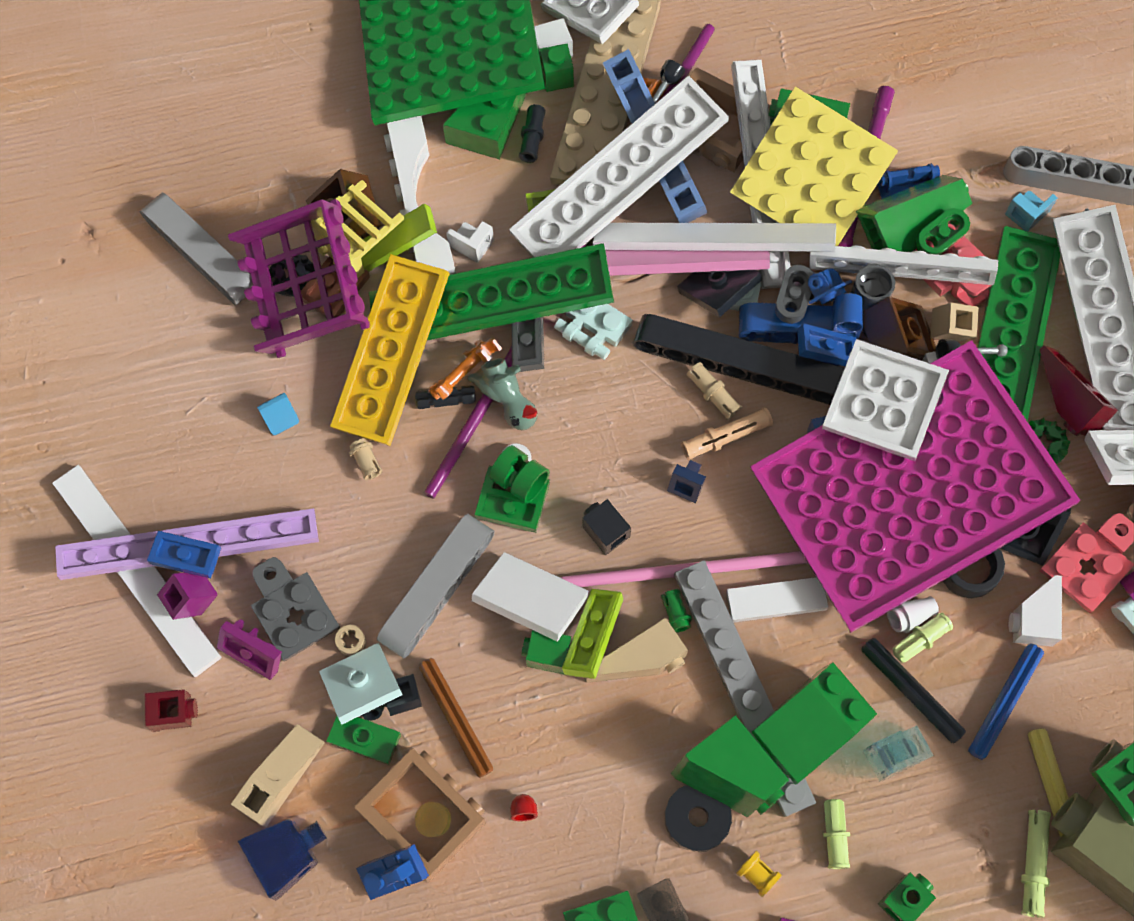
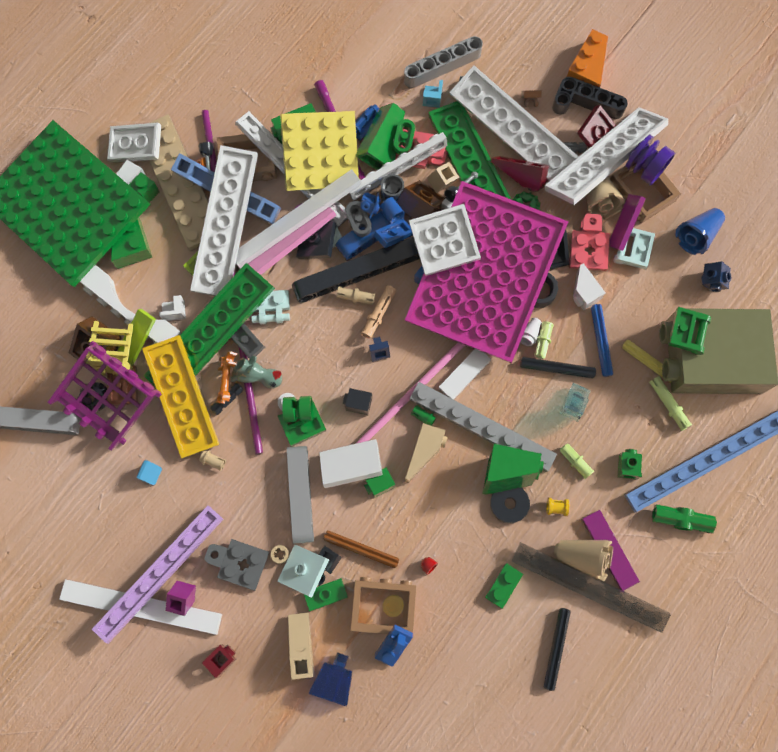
camera: 40 degrees left, 5 degrees up
(184, 554) = (163, 580): blue hinge -> none
(249, 649) = (233, 599): magenta plate -> none
(532, 133) = (159, 231): black pin -> none
(592, 633) = (394, 457): lime tile -> none
(814, 722) = (528, 417): green slope -> none

